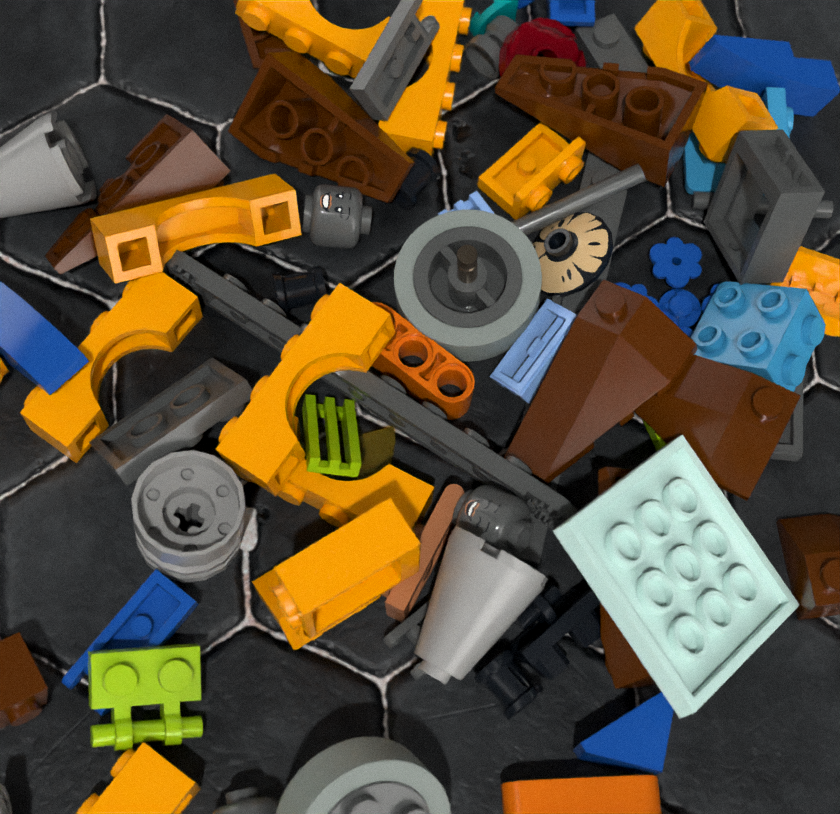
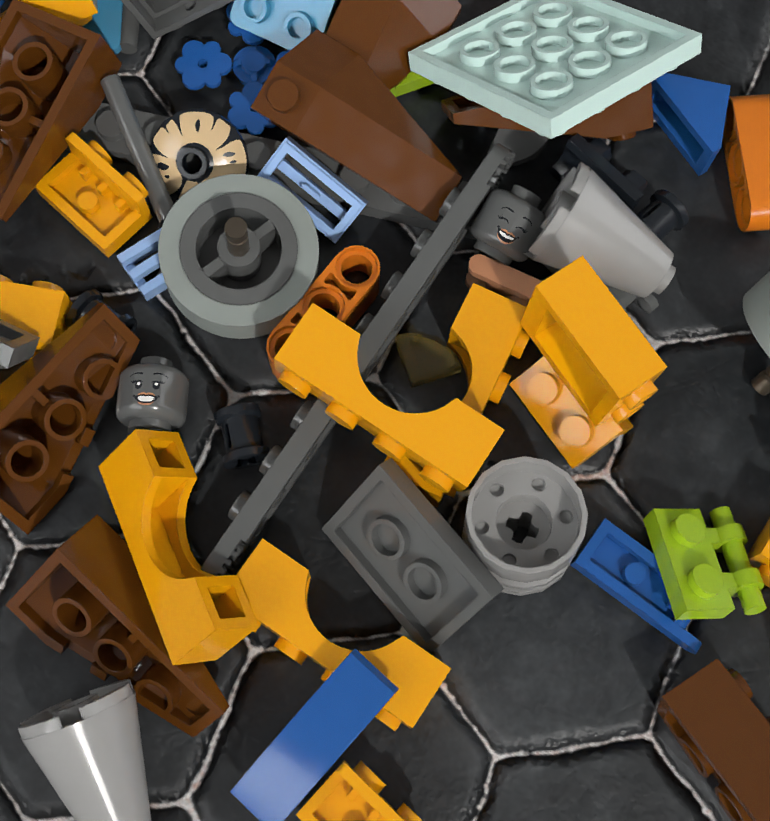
camera: 90 degrees left, 5 degrees up
(331, 414) = (419, 381): lime tile -> none

